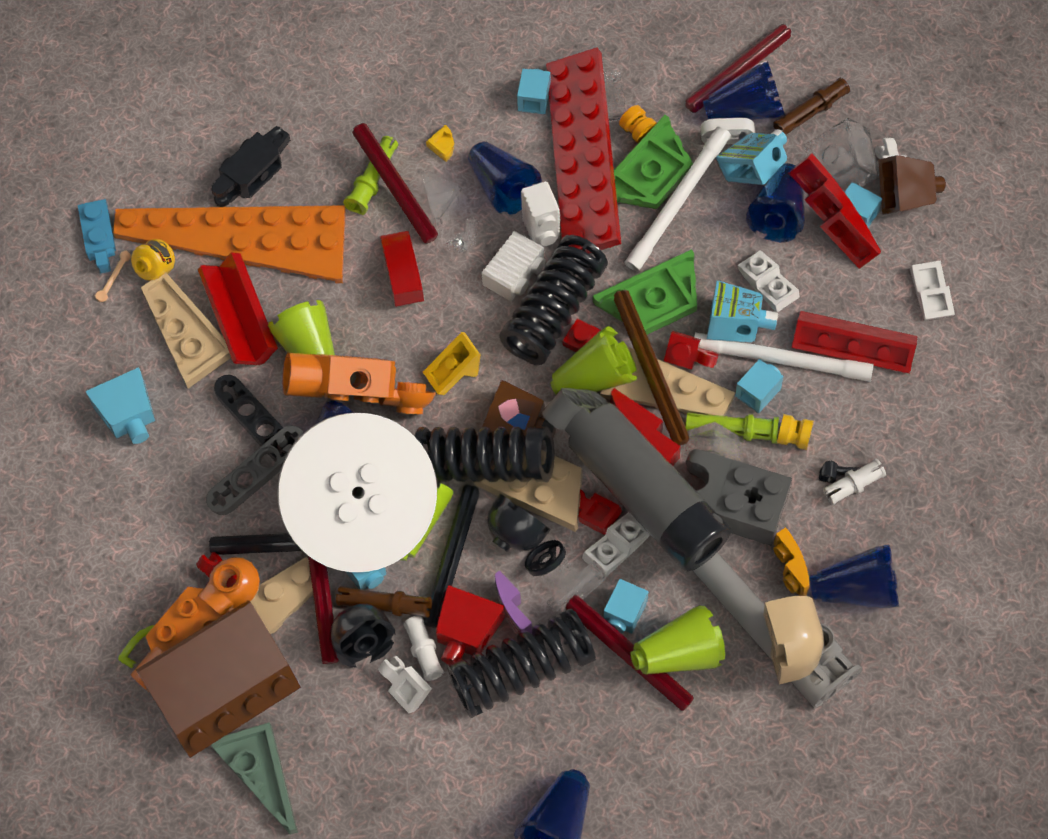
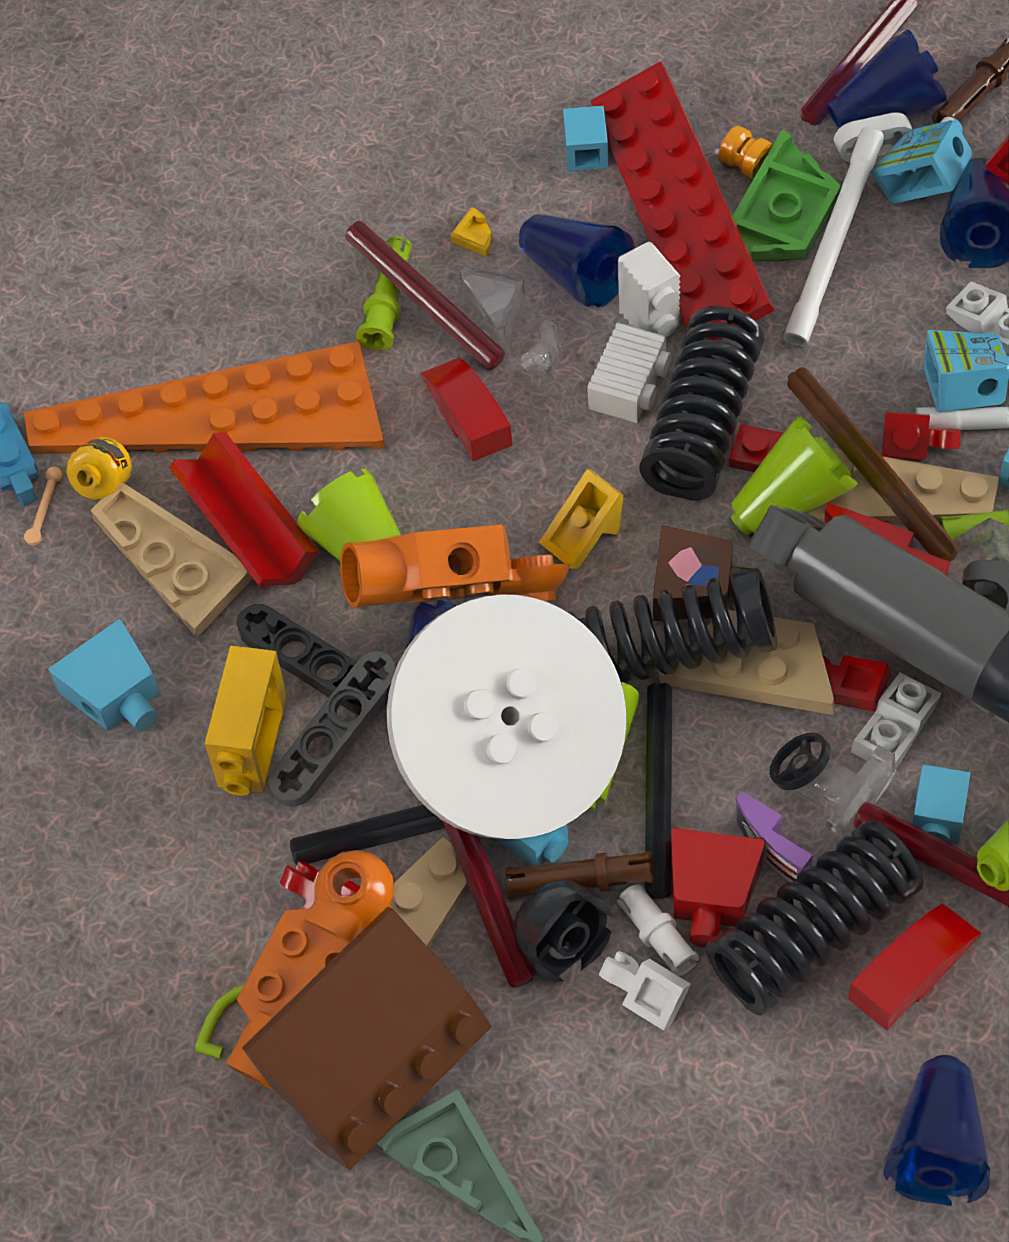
camera: 10 degrees left, 5 degrees down
(200, 453) = (246, 720): none -> yellow window
(250, 166) = (206, 316): black hinge -> none
(514, 526) = (743, 723): black cylinder -> none
(576, 706) = (911, 965): none -> red slope
(658, 293) = (851, 363): bright green wing -> none

